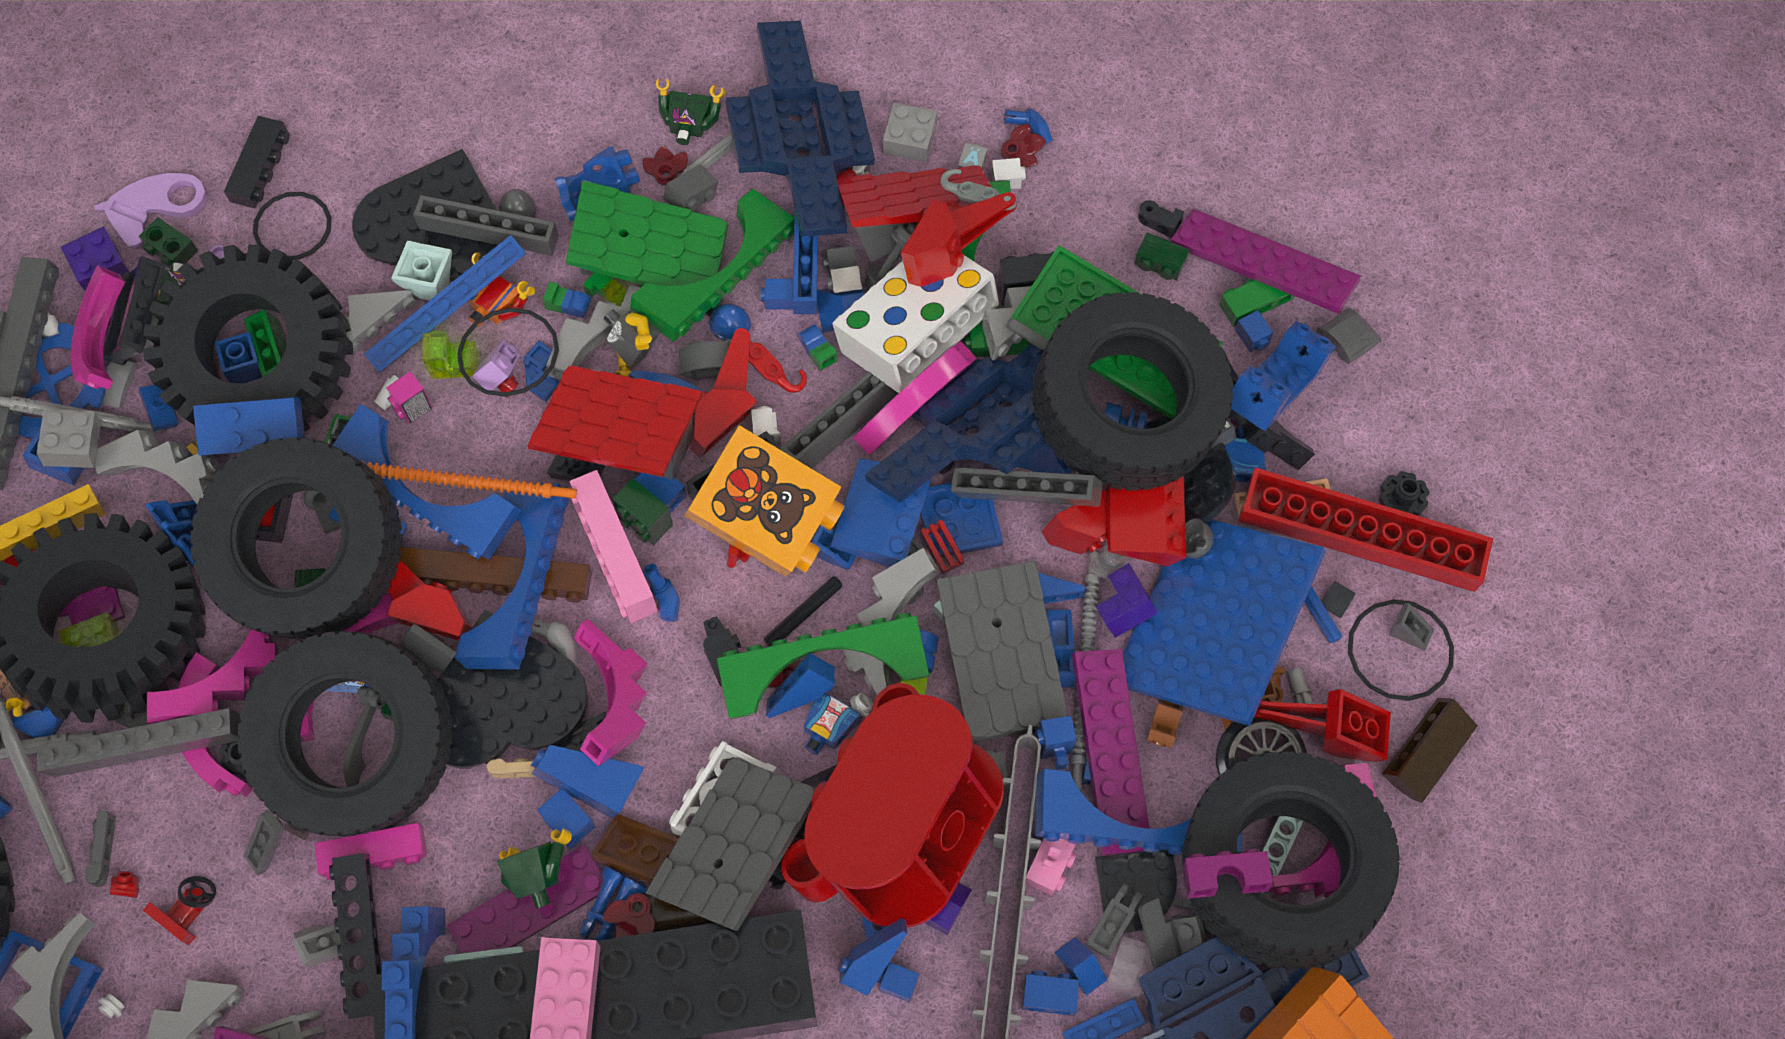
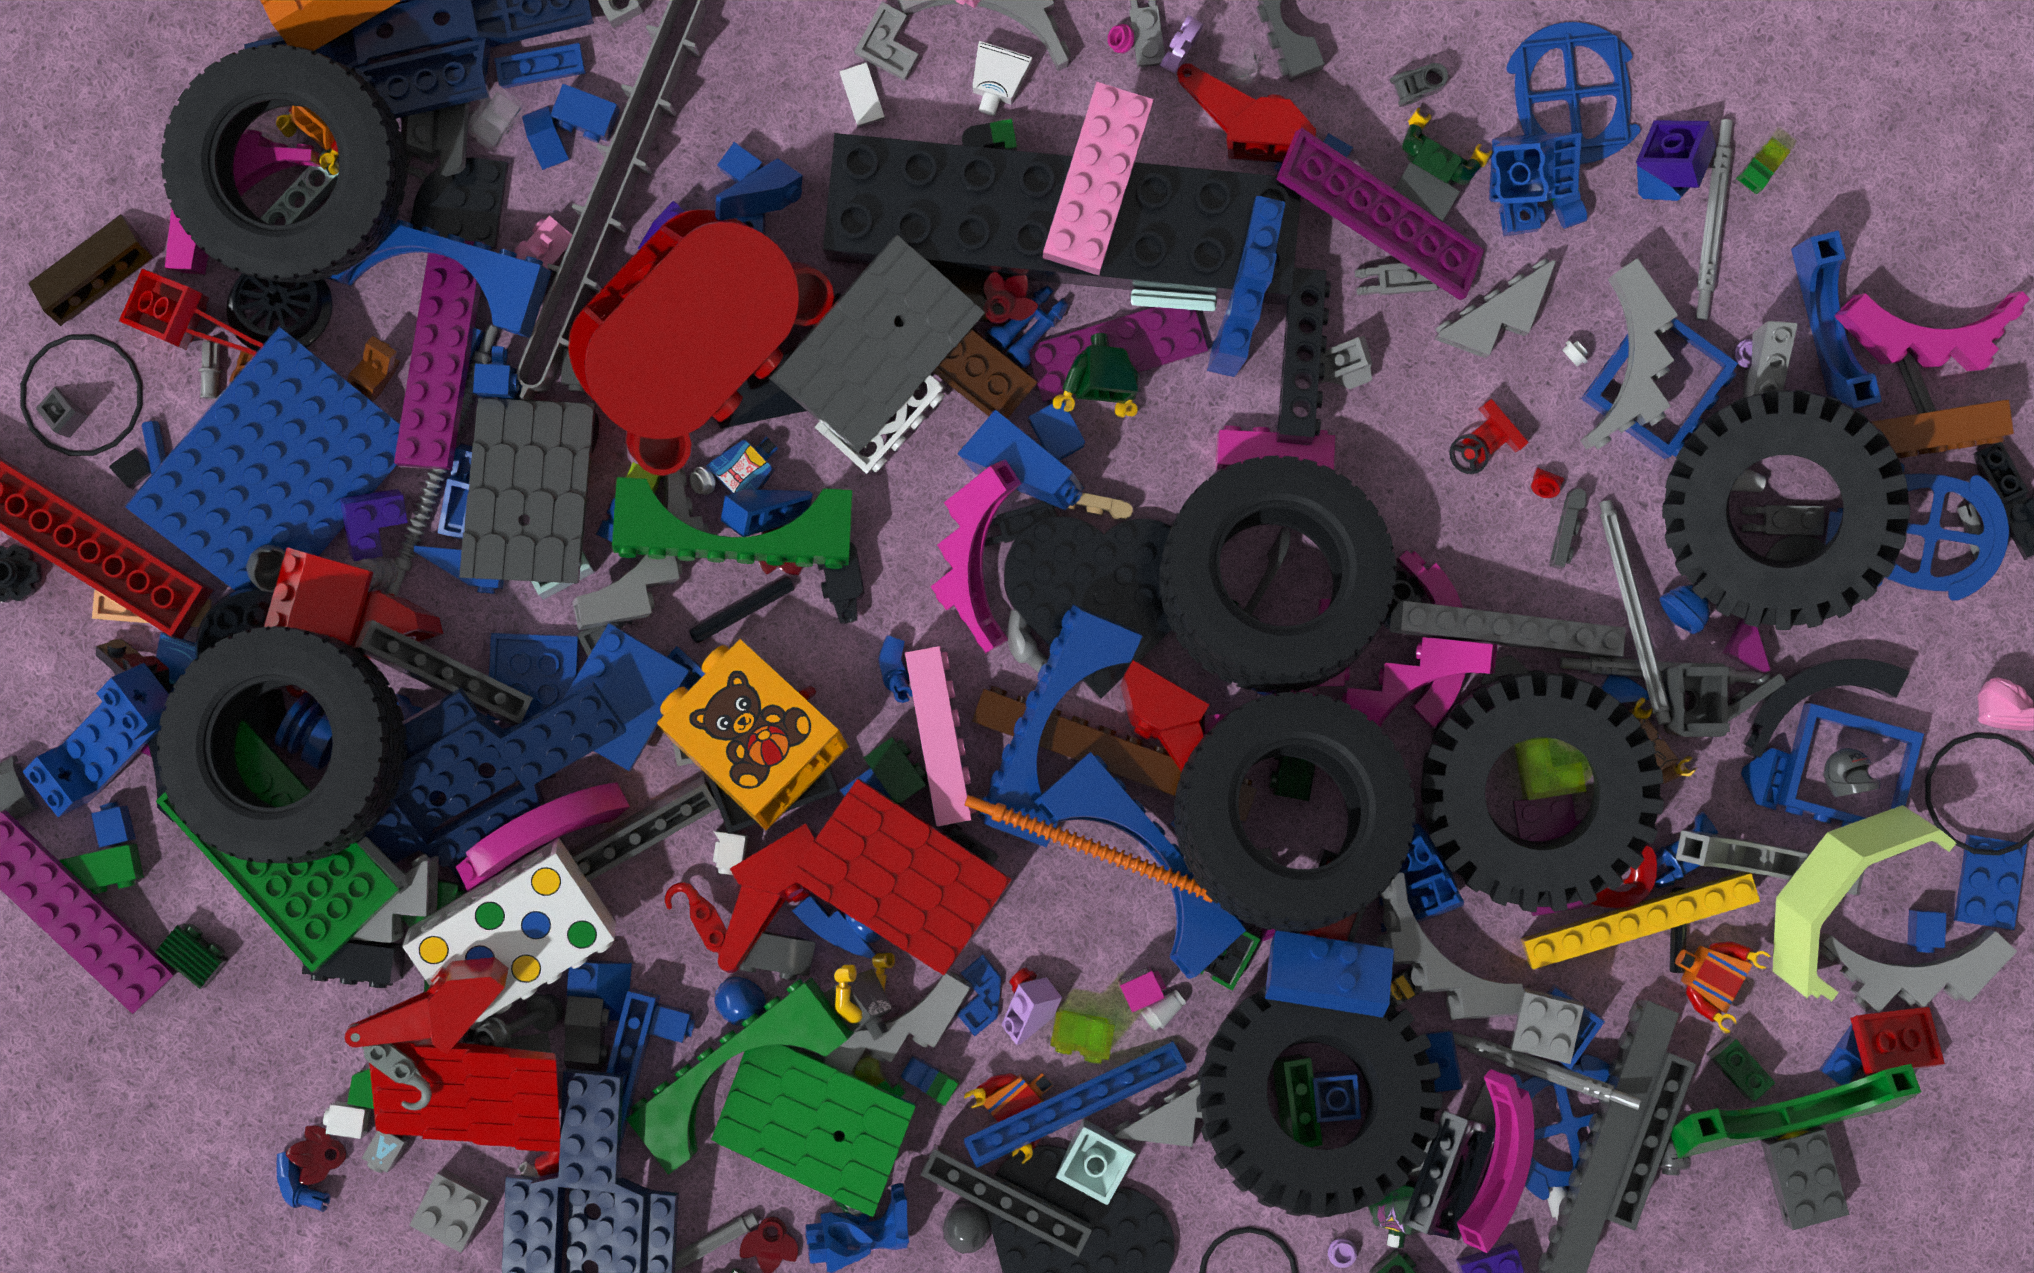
camera: 165 degrees left, 20 degrees up
(264, 842) = (1386, 481): dark grey plate -> none
(428, 648) = (1173, 656): dark grey slope -> none
(519, 391) = (1016, 959): black piece -> none
(691, 189) = (745, 1193): dark grey brick -> none
(818, 347) = (642, 940): leg -> none
(933, 529) = (562, 645): red tile -> none
(1113, 923) = (495, 166): dark grey hinge -> none
(1159, 218) = (178, 1008): black leg -> none
(1249, 868) = (329, 143): magenta arch -> none

